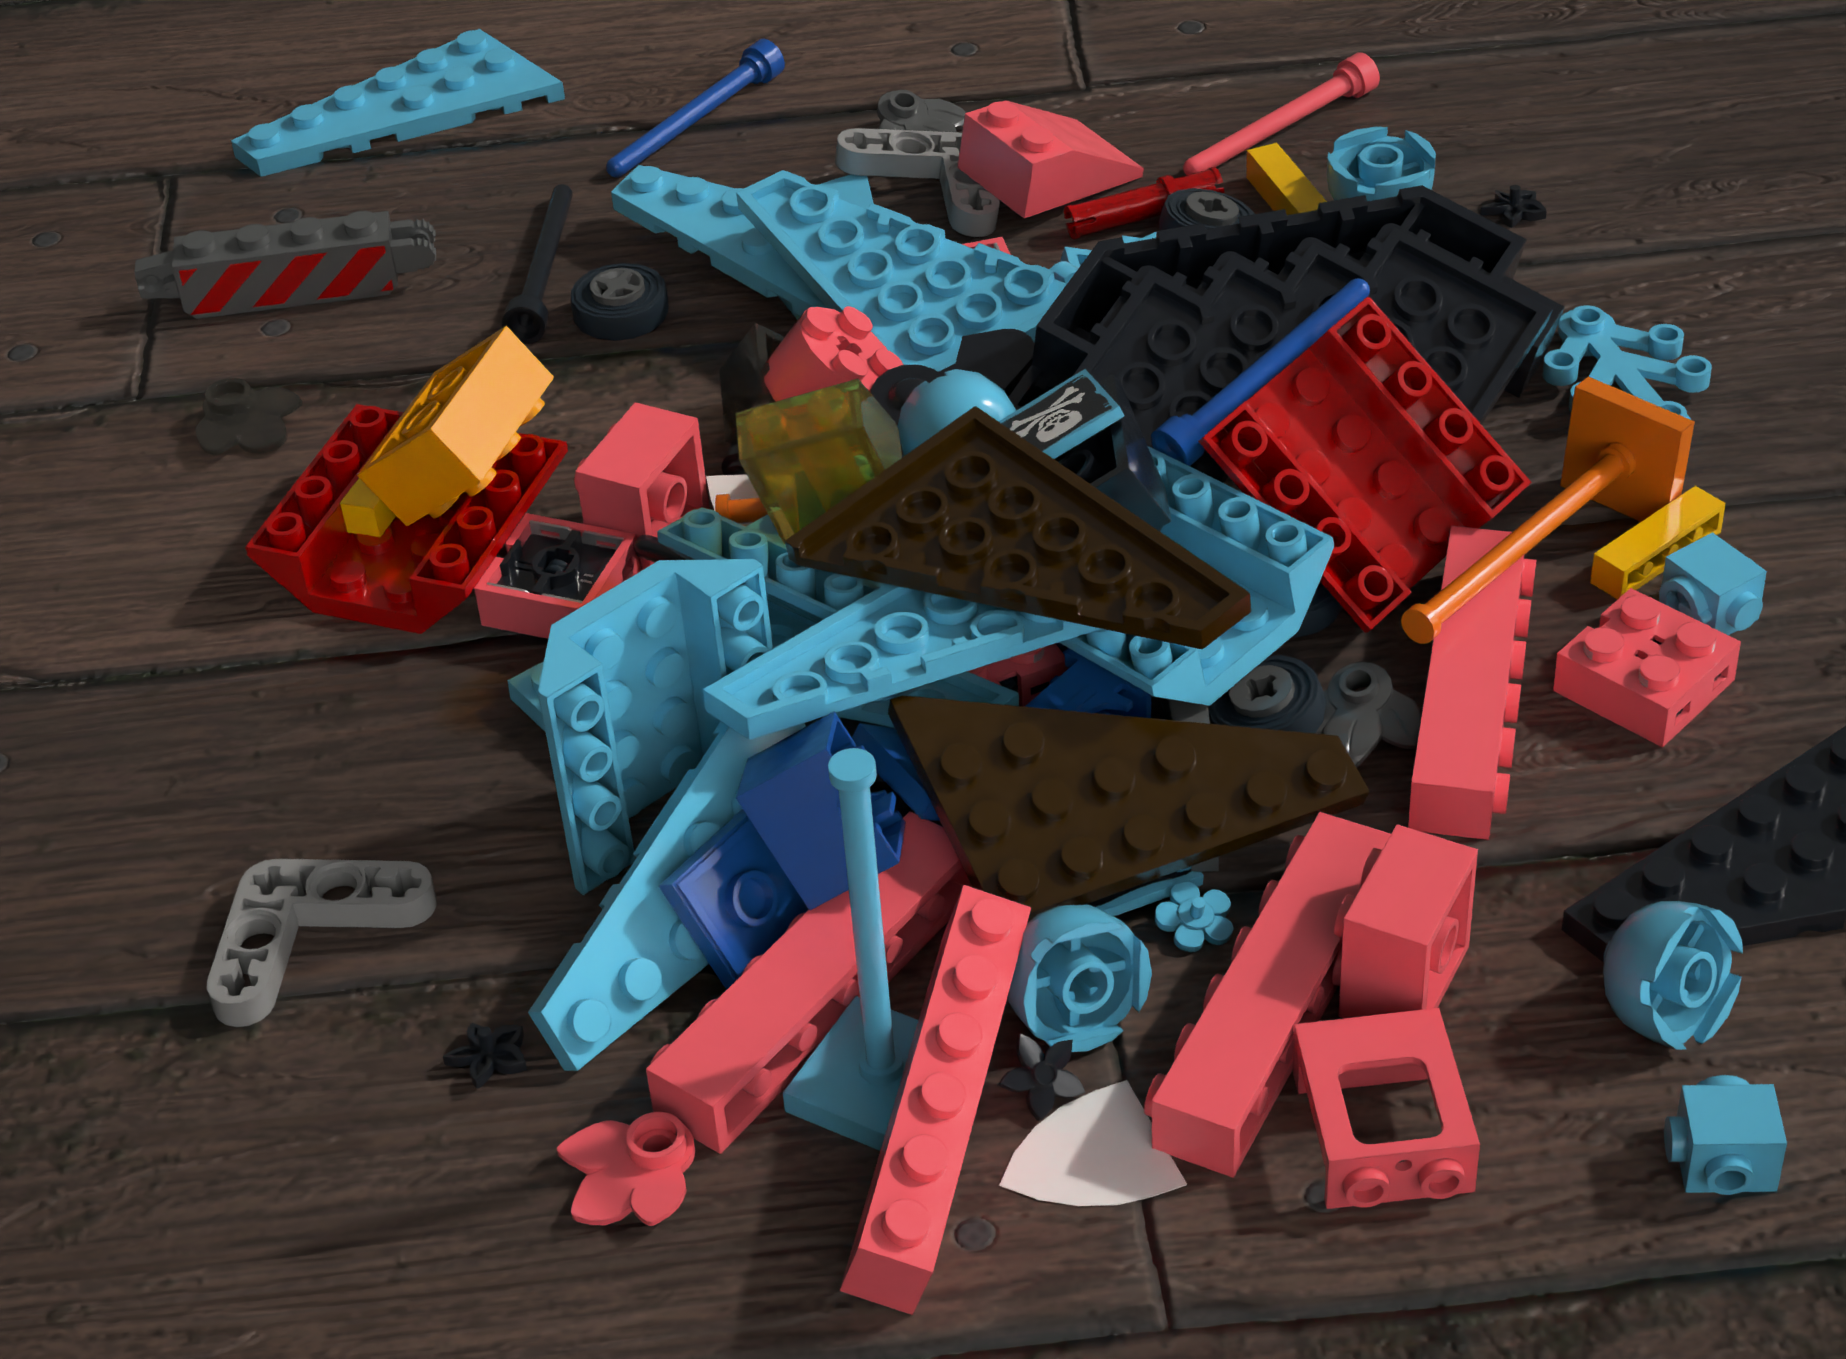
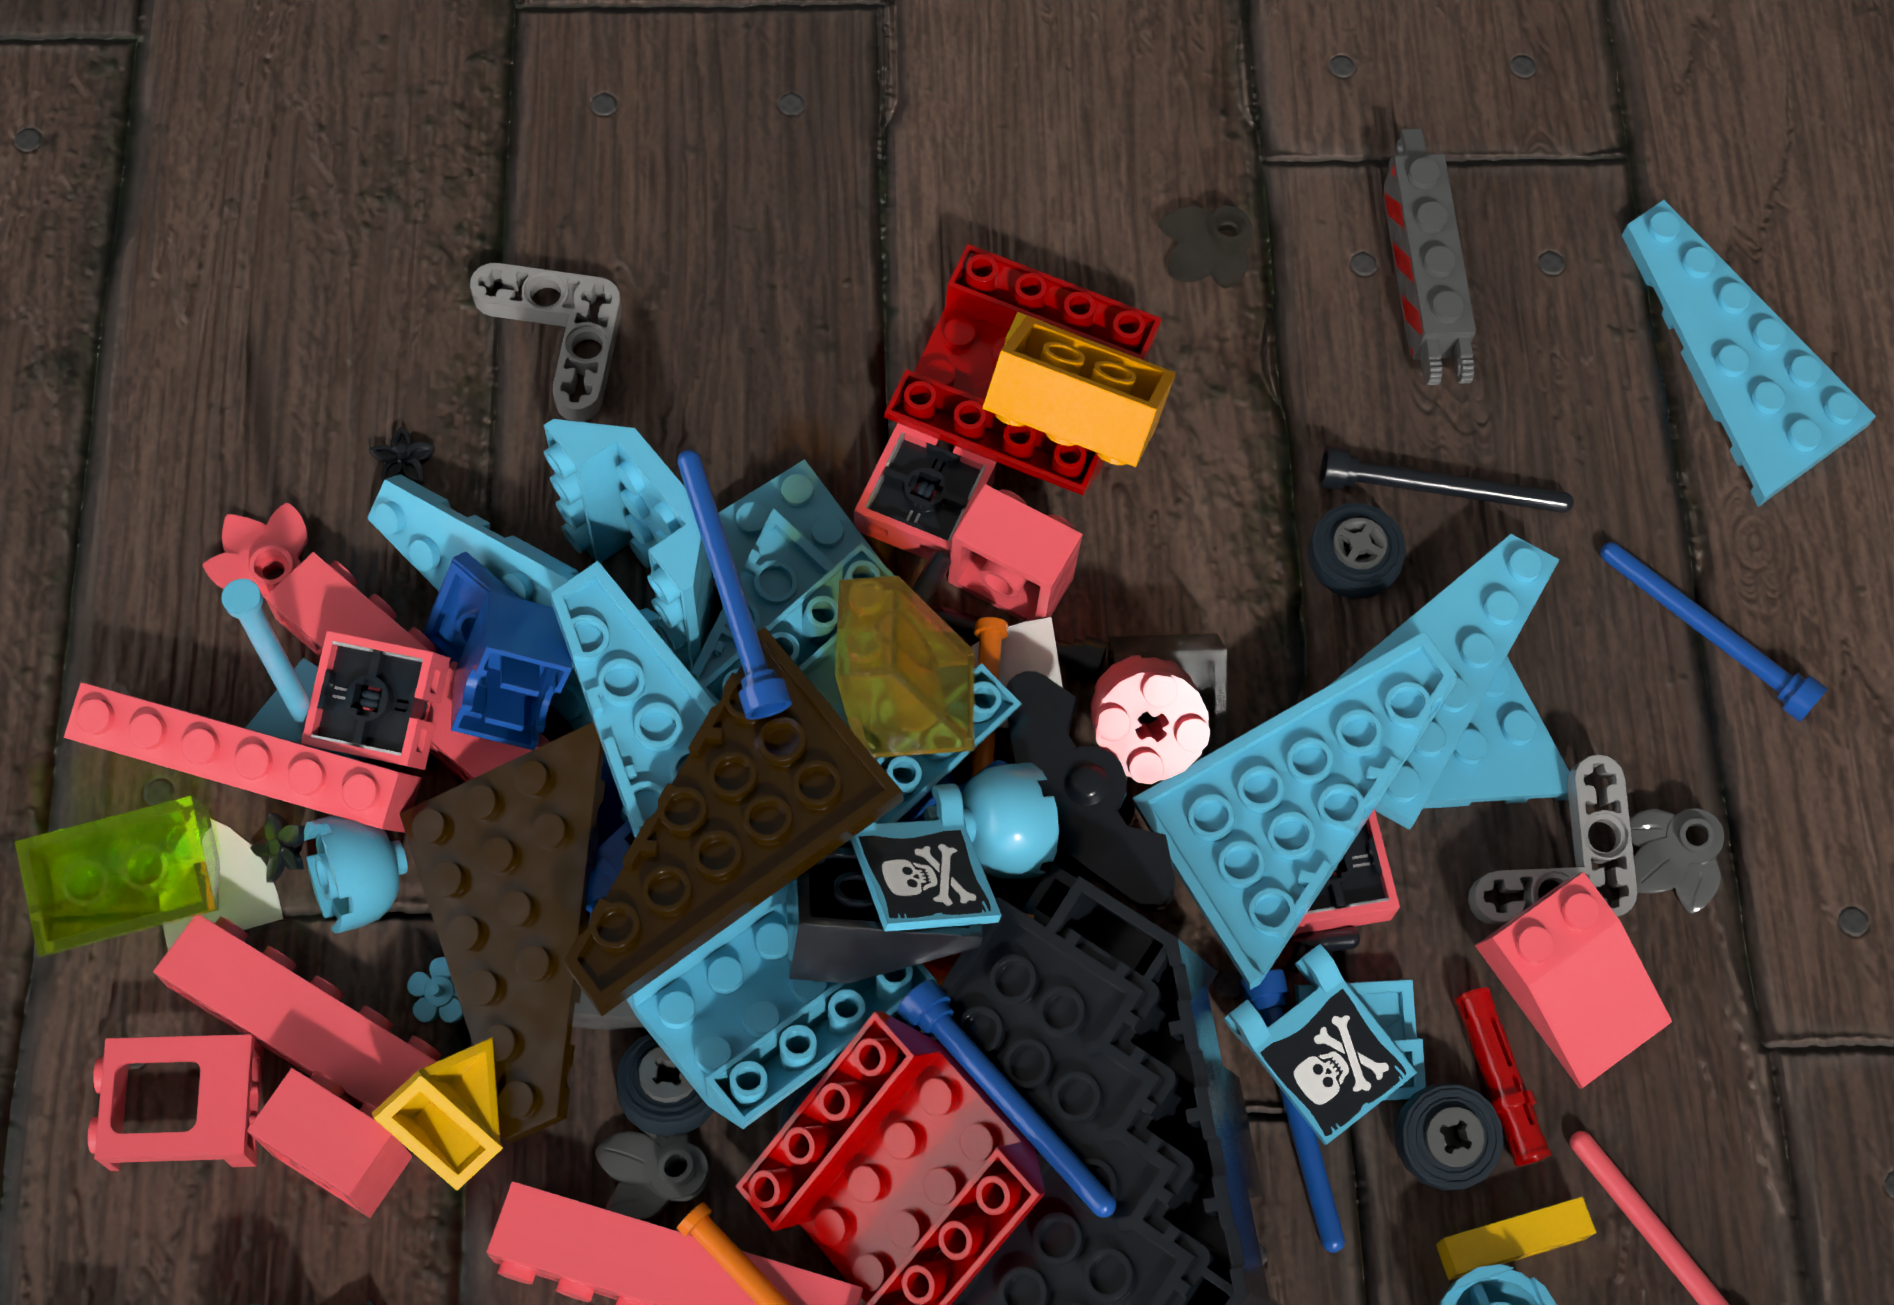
camera: 85 degrees right, 25 degrees up
(820, 949) = (375, 700): none -> piece
(874, 503) = (762, 690): none -> blue piece
(1113, 1193) = (120, 874): none -> clear neon green slope
(1352, 811) = (448, 1113): none -> yellow slope

